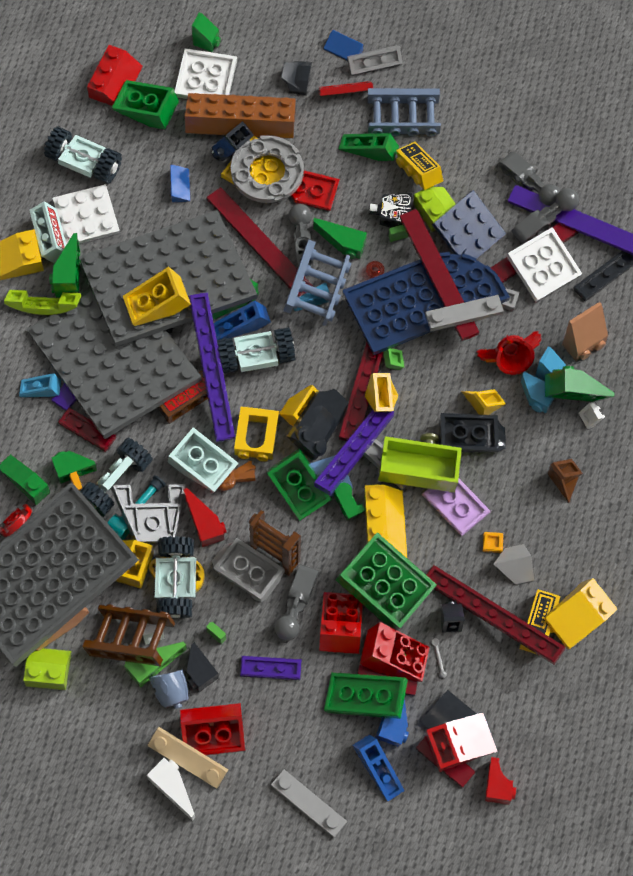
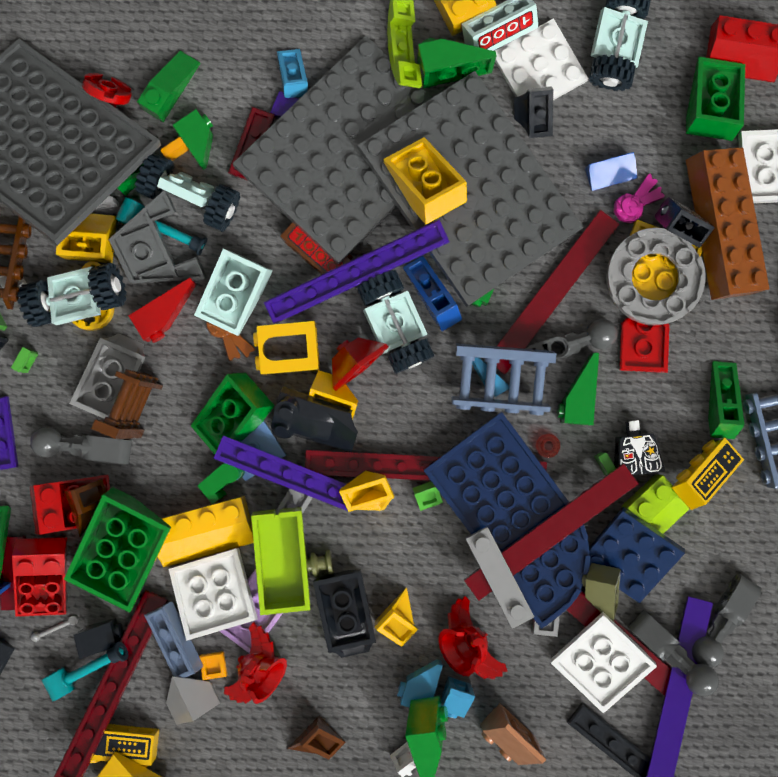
camera: 80 degrees right, 20 degrees up
(121, 223) = (535, 111): none -> black slope
(209, 177) = (630, 207): none -> dark pink piece
(278, 382) = (354, 359): none -> red slope
(344, 603) = (83, 503): none -> reddish brown slope
(436, 526) = (213, 594): none -> white plate
(466, 563) = (170, 636): none -> sand blue slope
(483, 657) = (61, 683): none -> teal piece
(488, 251) = (602, 588): none -> olive slope
(501, 506) = (258, 670): none -> red helmet

